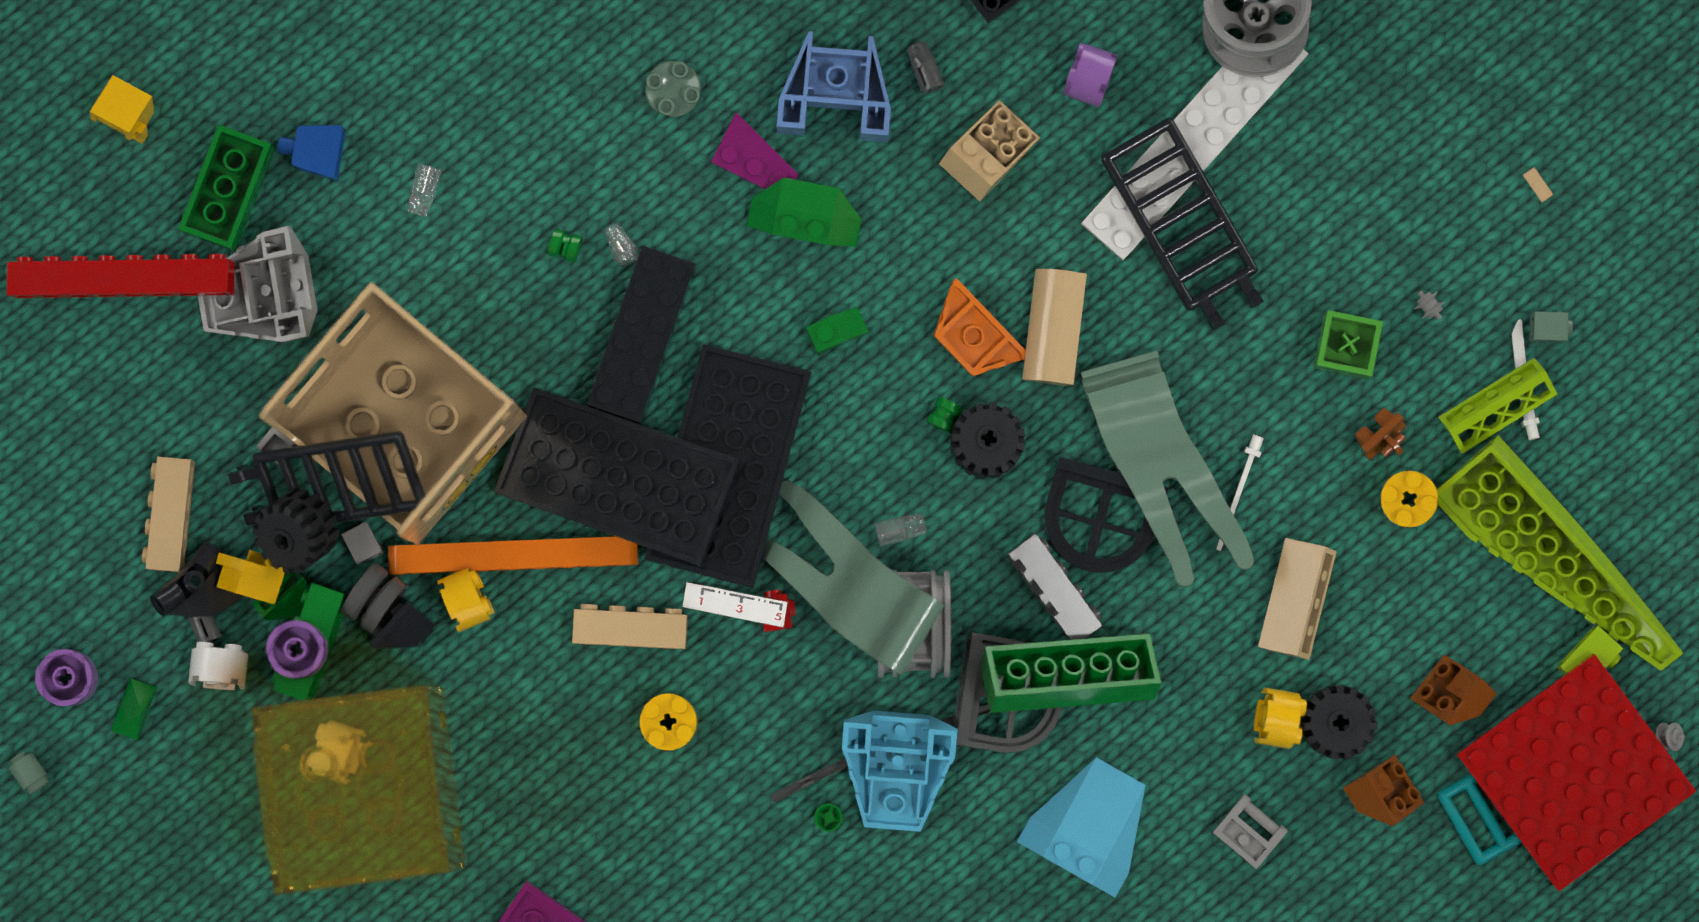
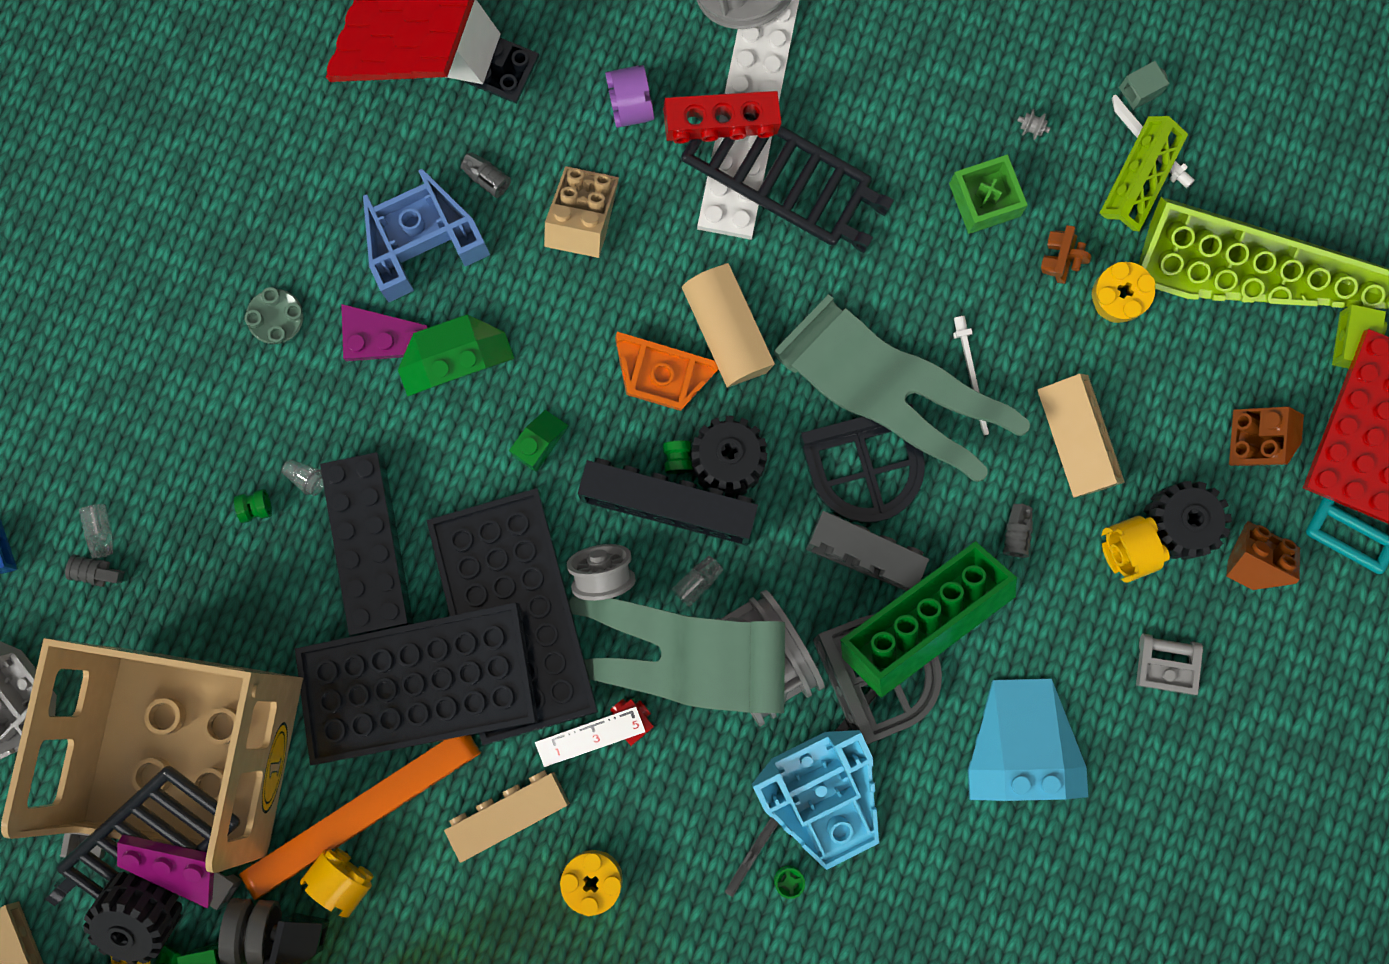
camera: 30 degrees left, 5 degrees down
(349, 509) = (168, 866): none -> magenta wing
(401, 222) = (92, 571): none -> dark grey hinge
(823, 474) = (601, 572): none -> light grey wheel
(912, 449) = (667, 502): none -> black brick
(1194, 647) = (1019, 531): none -> dark grey hinge
(1198, 156) = (733, 106): none -> red brick

